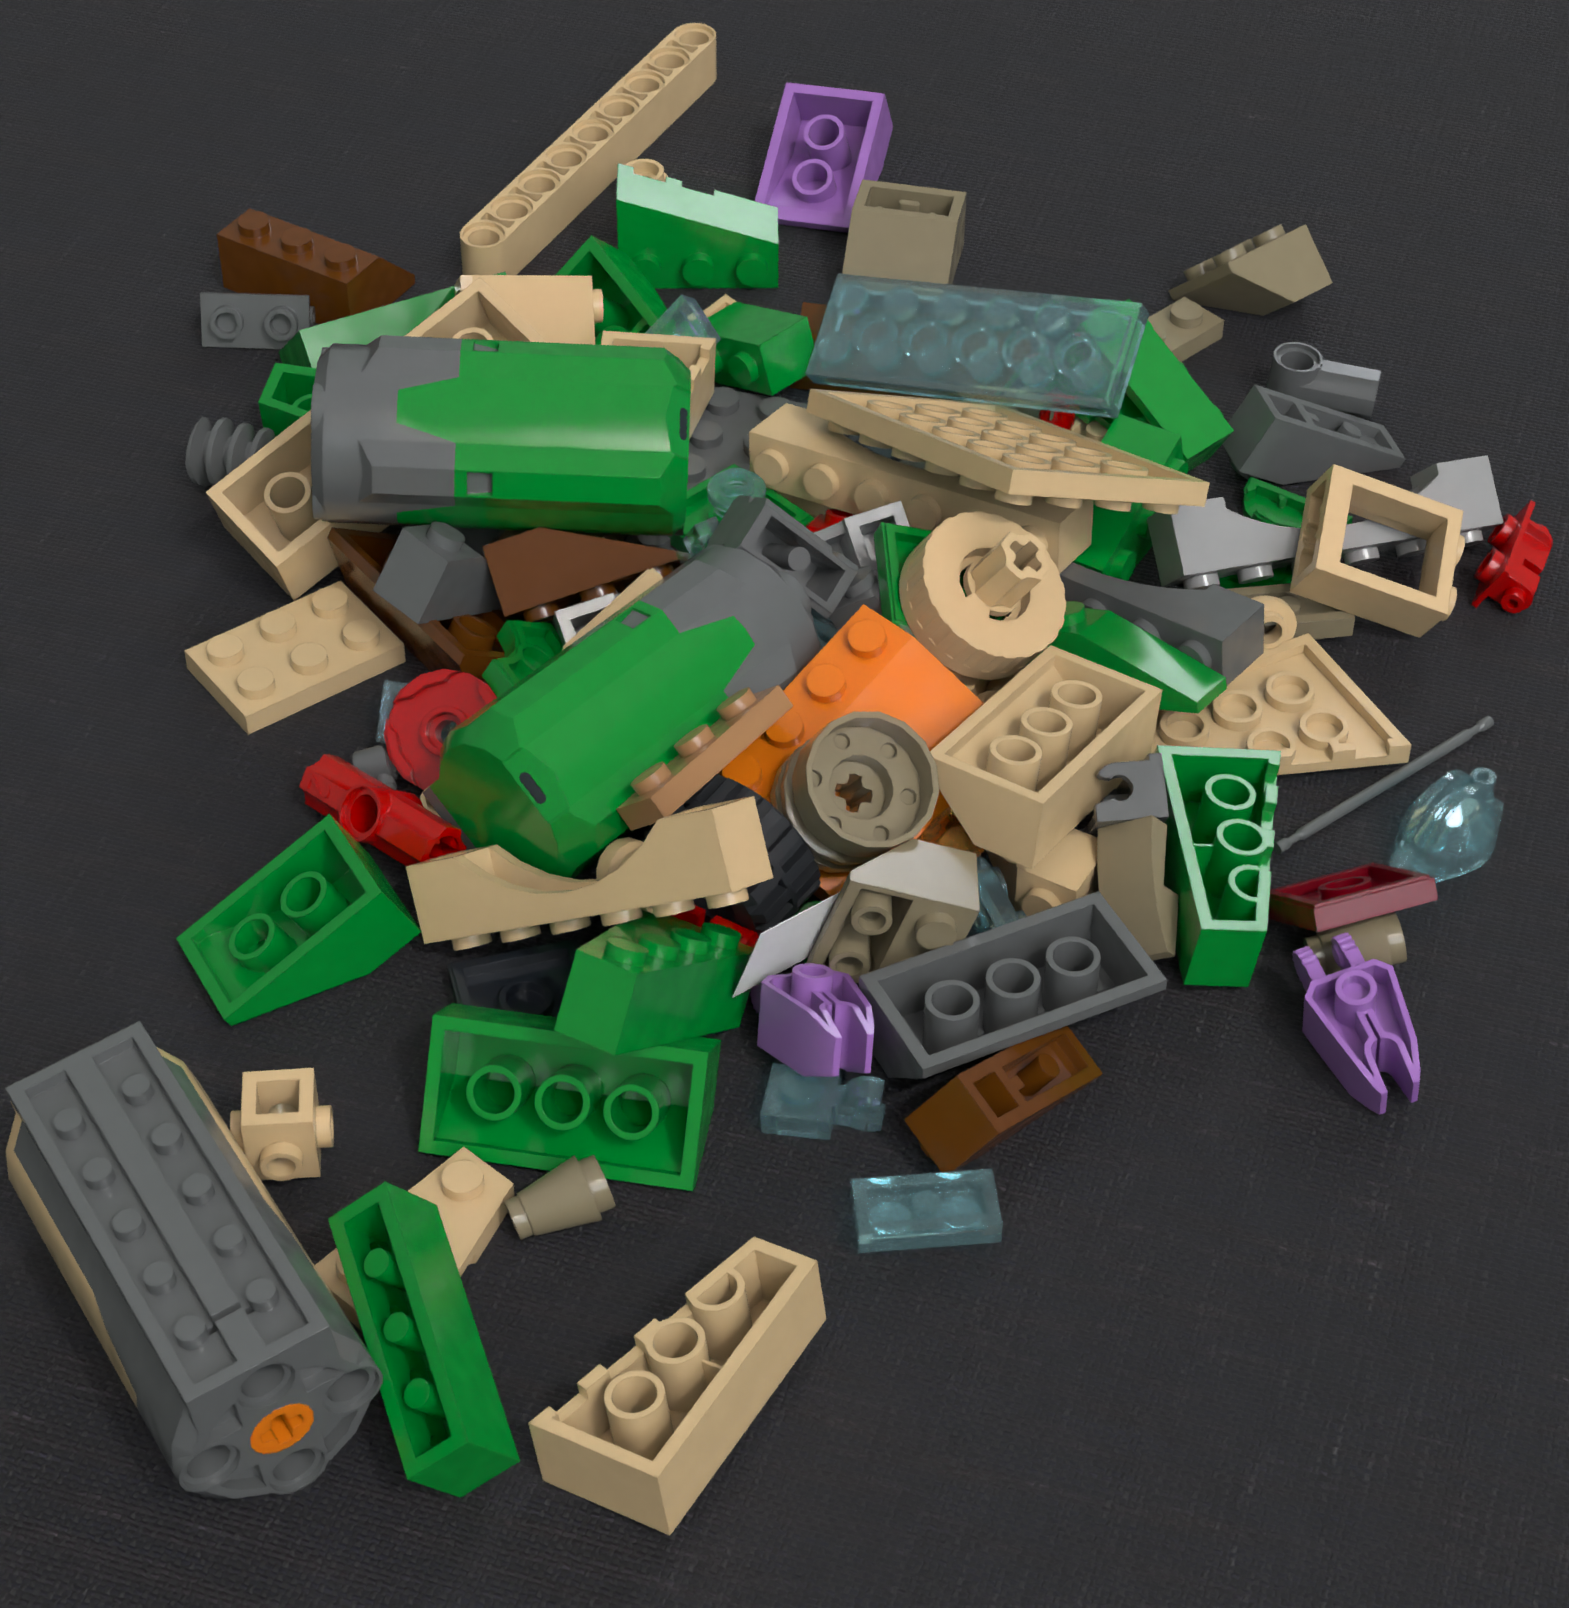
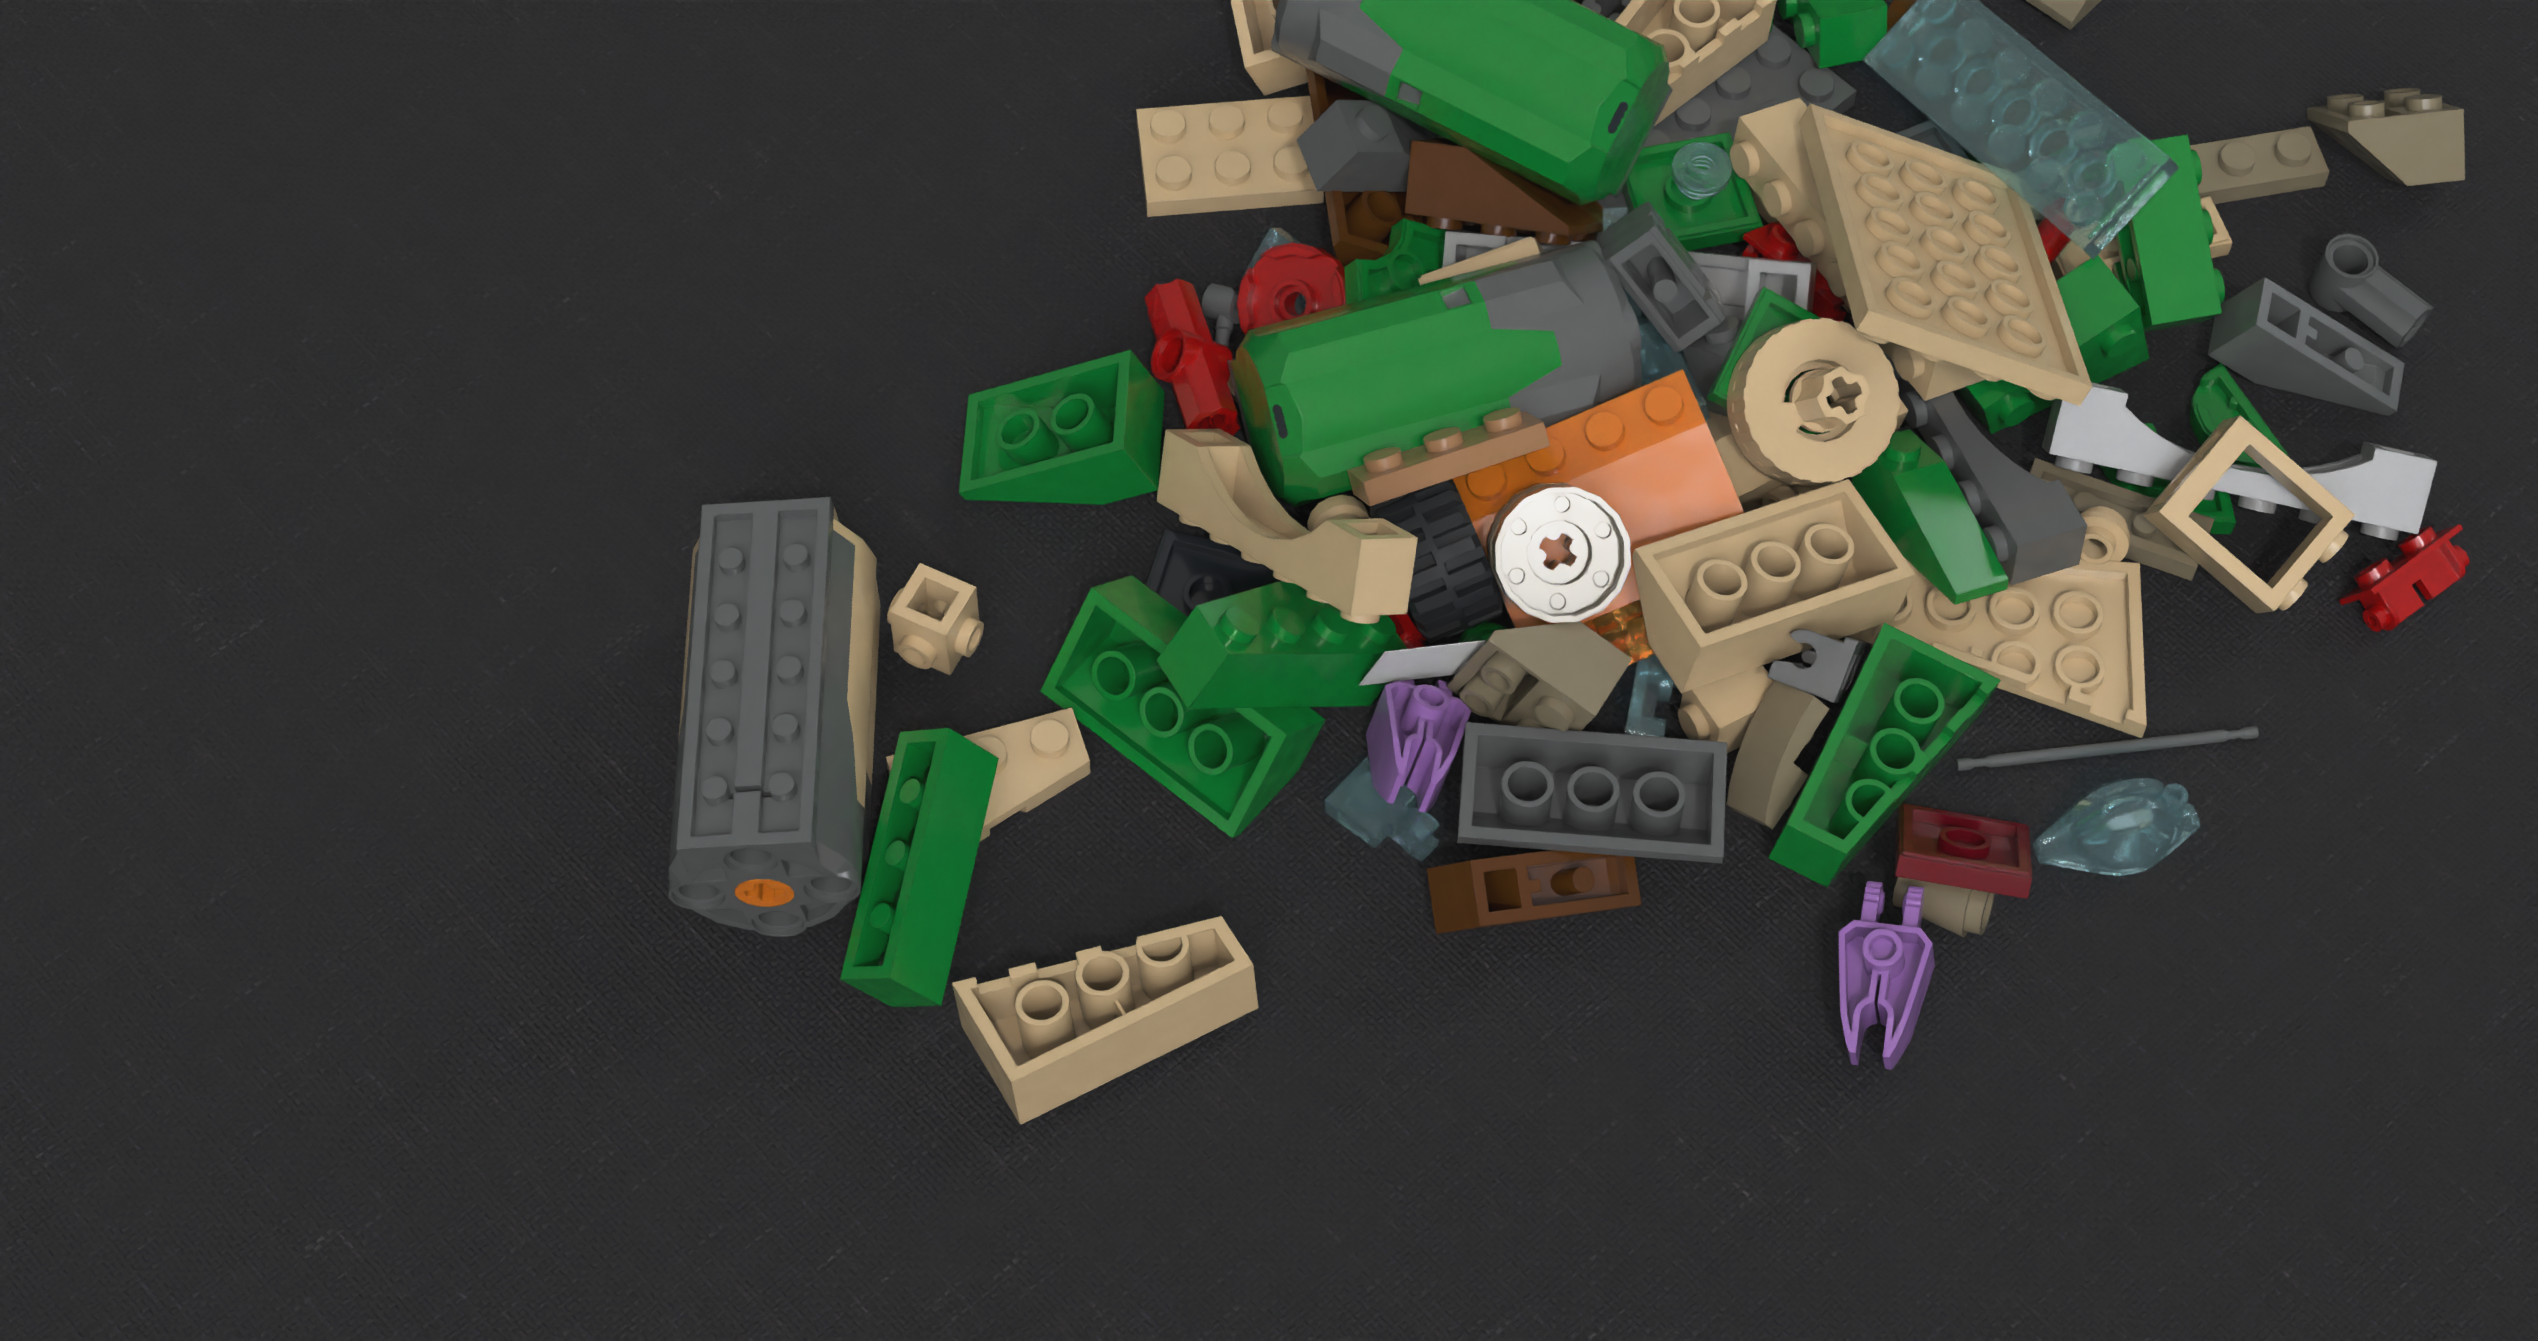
camera: 30 degrees right, 15 degrees up
(561, 1199) = (1118, 794): dark tan cone -> none
(926, 1210) = (1400, 955): clear light blue plate -> none

